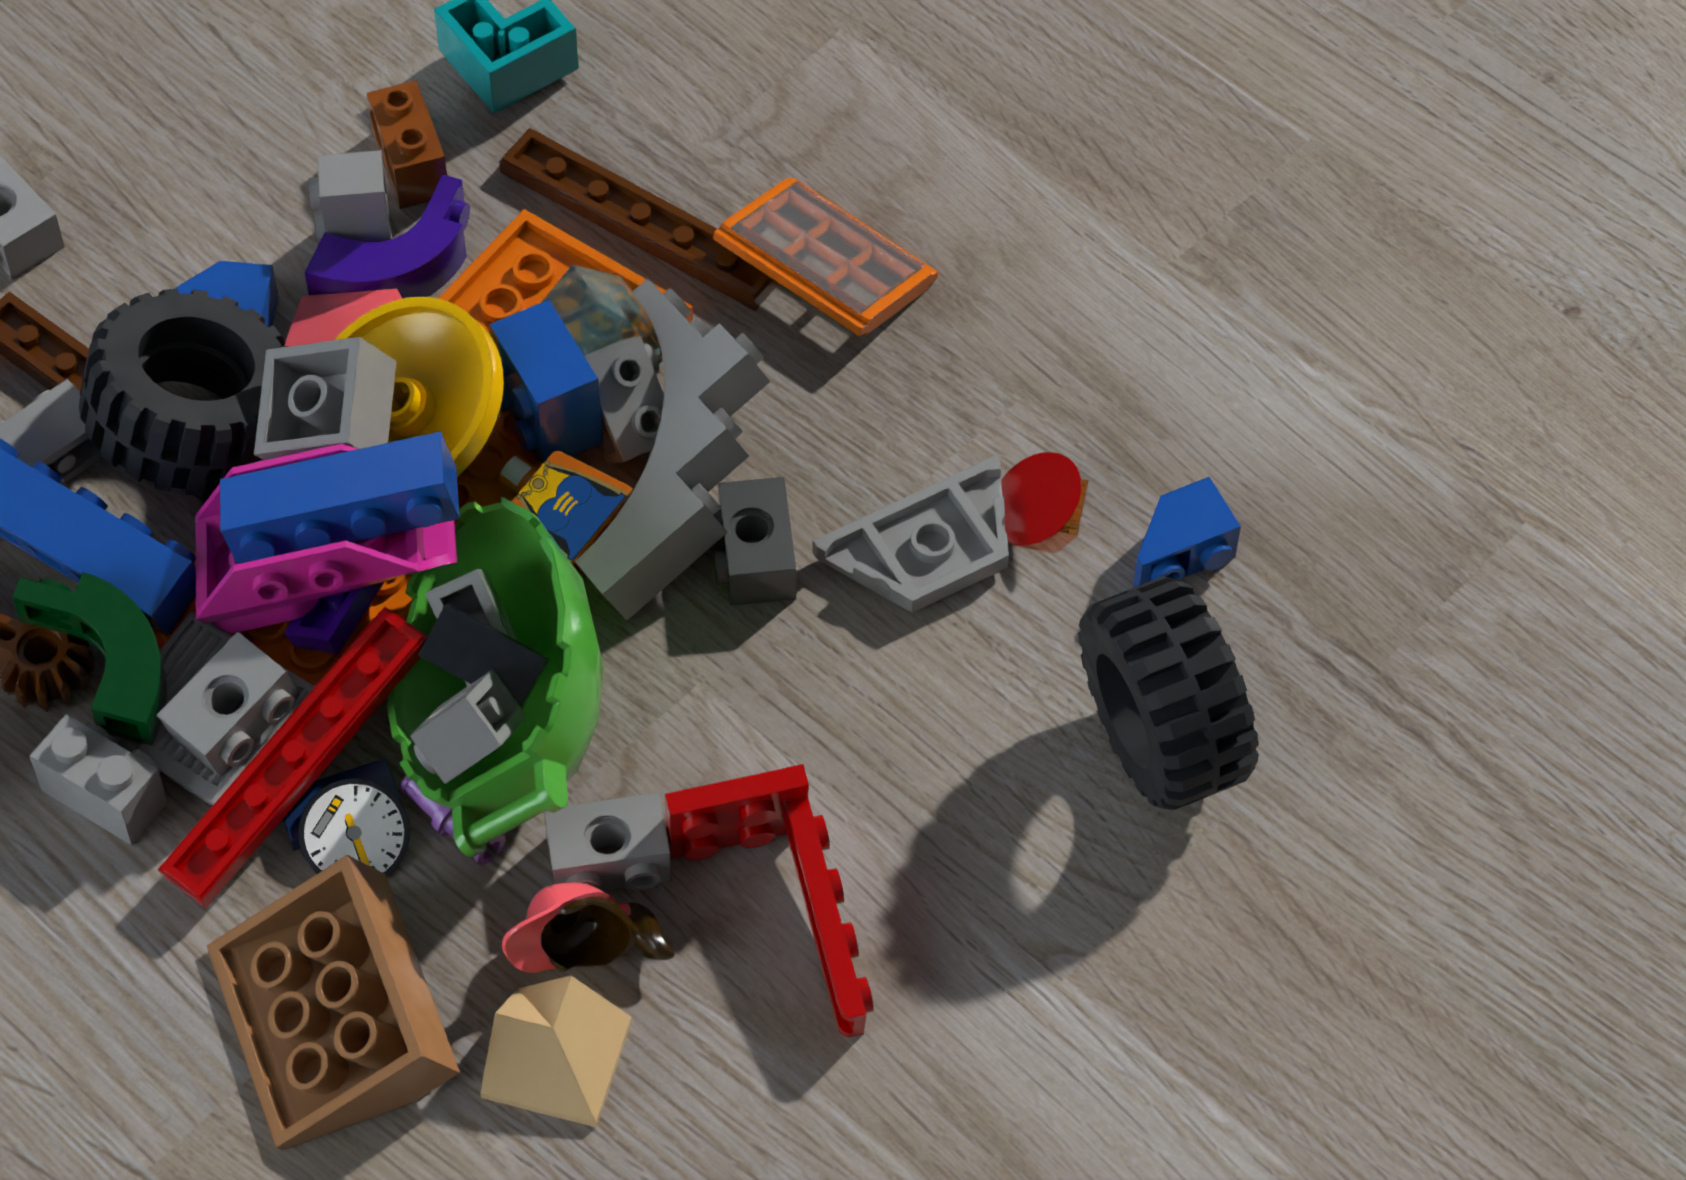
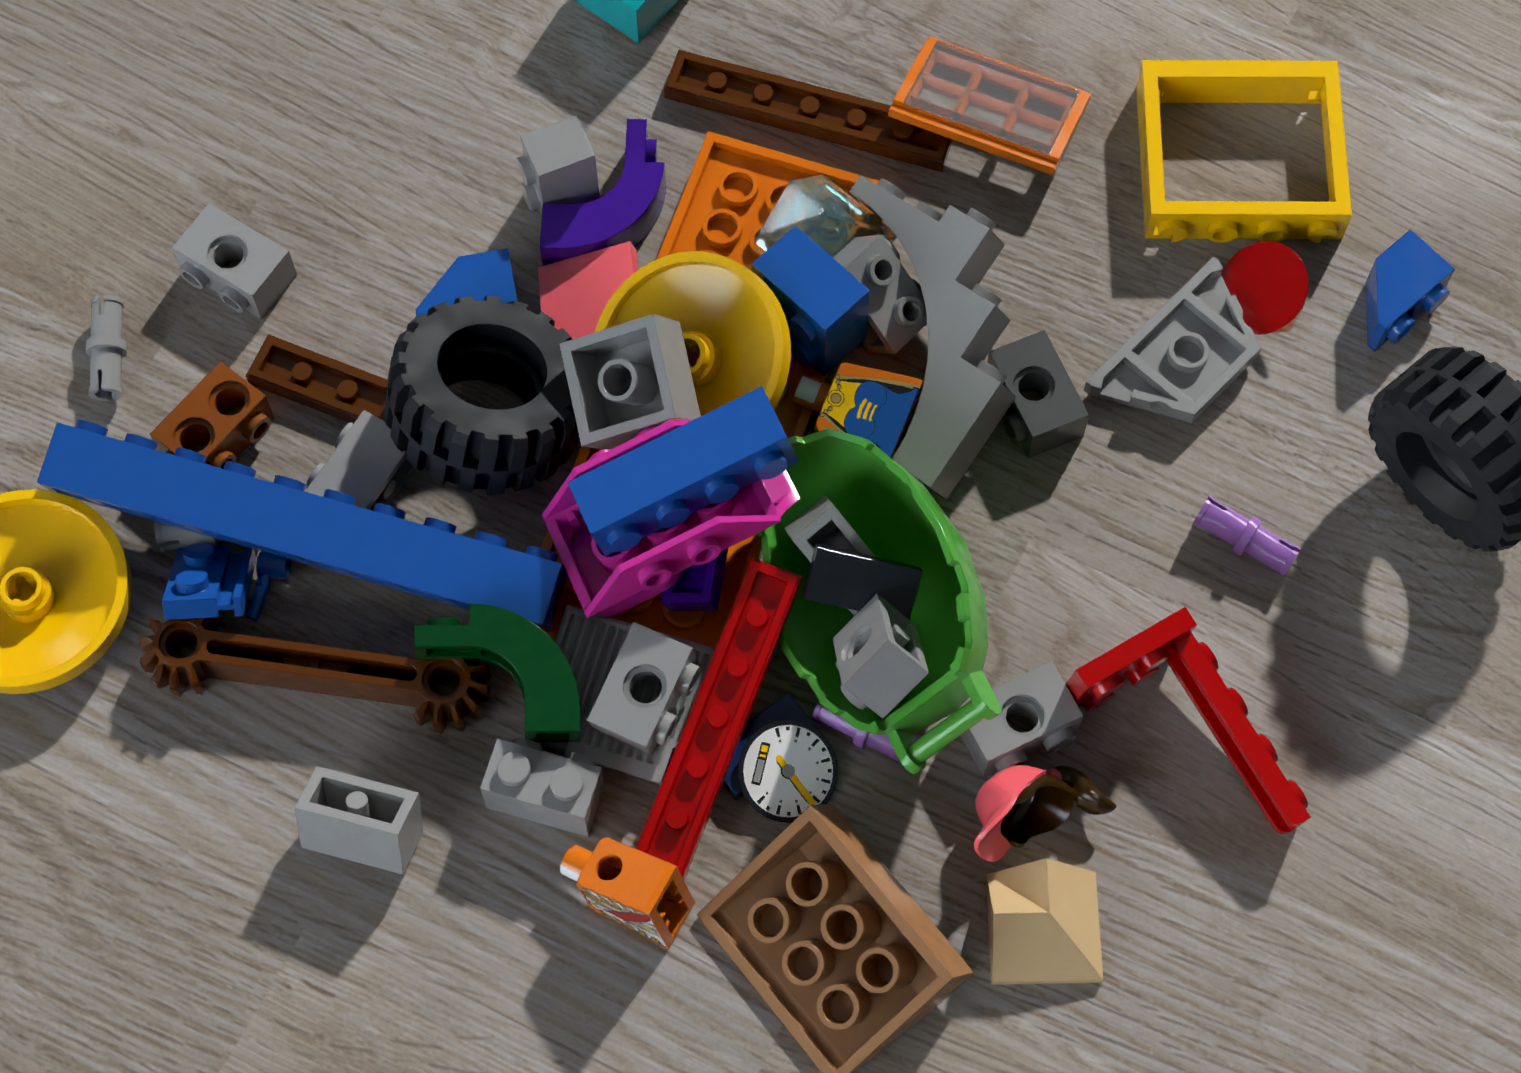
camera: 15 degrees left, 10 degrees up
(131, 879) = (631, 888): none -> orange torso
(407, 142) = (575, 86): dark orange brick -> none
(922, 733) = (1246, 535): none -> medium lavender pin
(1086, 296) = (1242, 83): none -> yellow window

